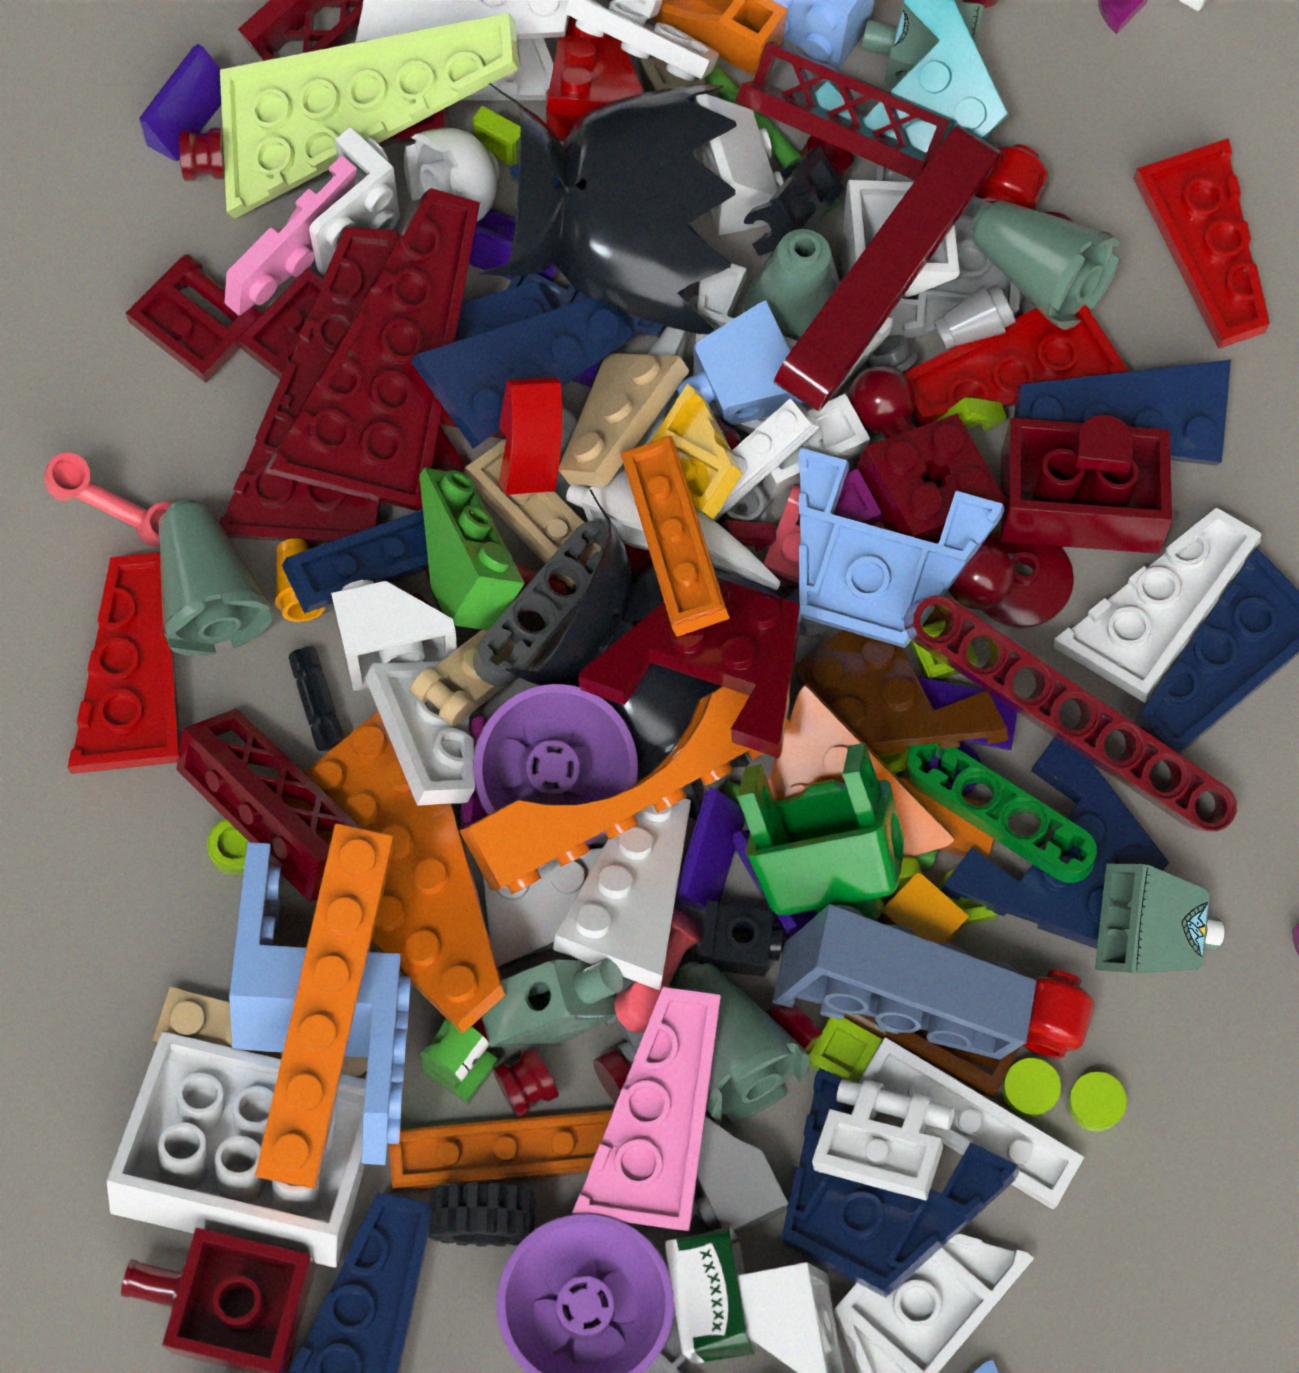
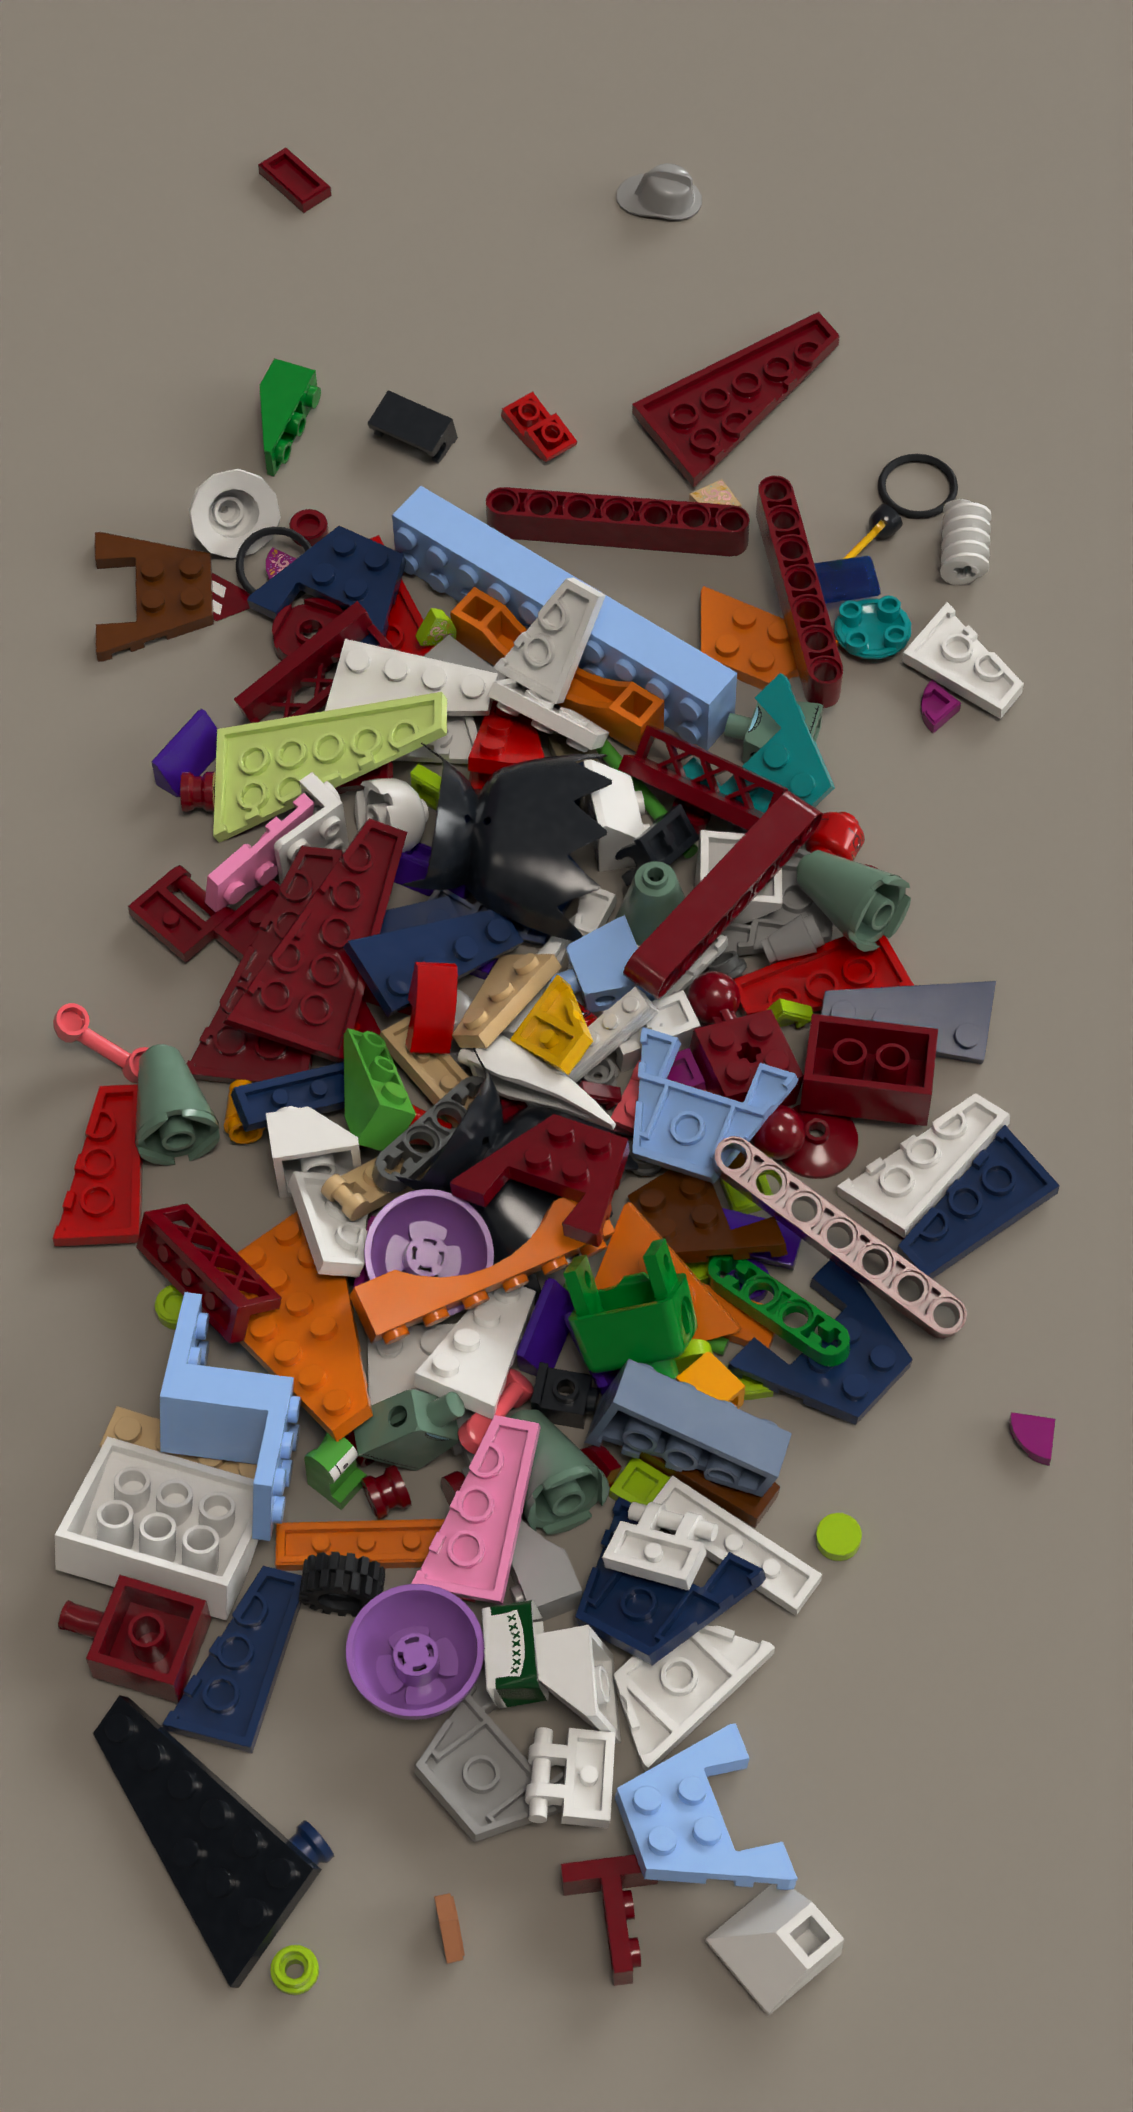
camera: 10 degrees right, 10 degrees down
(316, 698) = (249, 1199): black axle -> none
(325, 1007) = (222, 1436): orange arch -> none
(674, 536) = (534, 1083): orange tile -> none
(1031, 1087) = (787, 1523): lime tile -> none
(1059, 1015) = (809, 1466): red head -> none
(1104, 445) = (882, 1036): dark red tile -> none
(1153, 922) = (893, 1399): sand green torso -> none
(1203, 226) = (988, 885): red wing -> none

